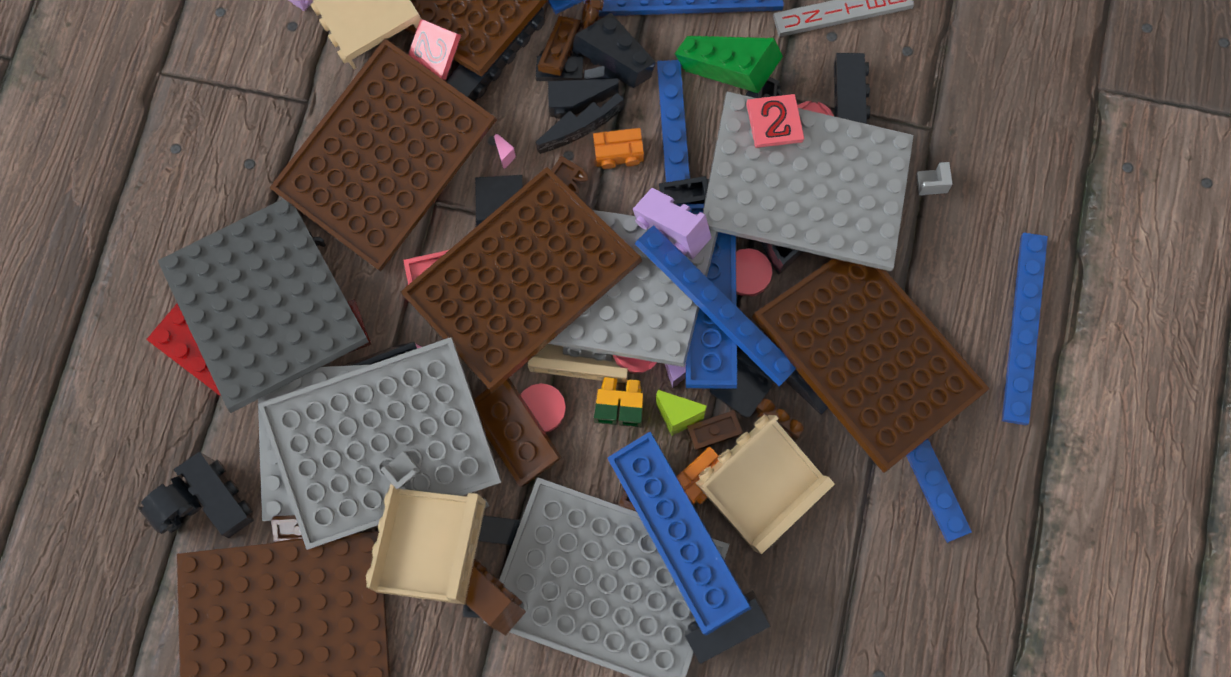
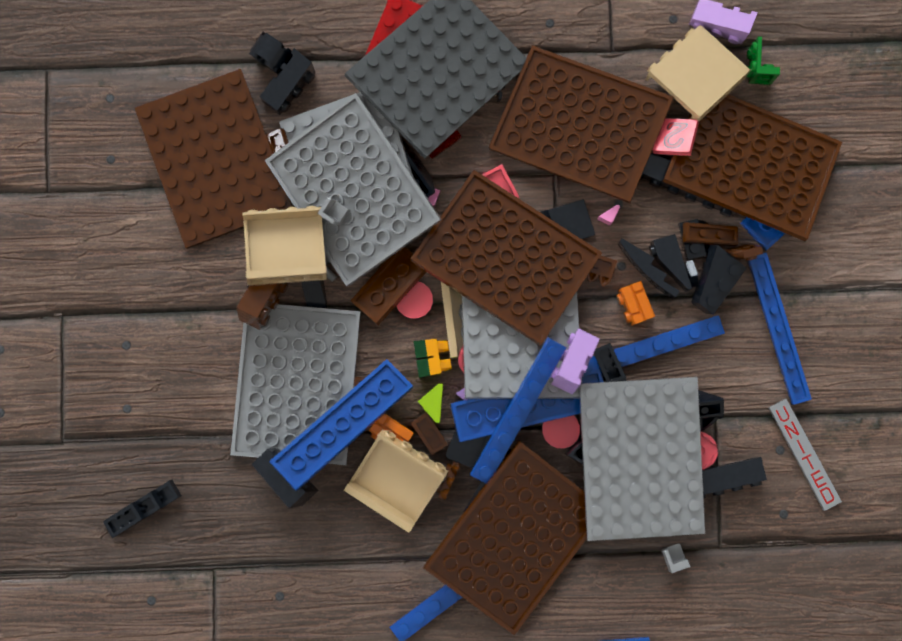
camera: 70 degrees right, 10 degrees up
(730, 60) = (728, 374): green wedge -> none
(775, 120) = (681, 421): coral tile -> none

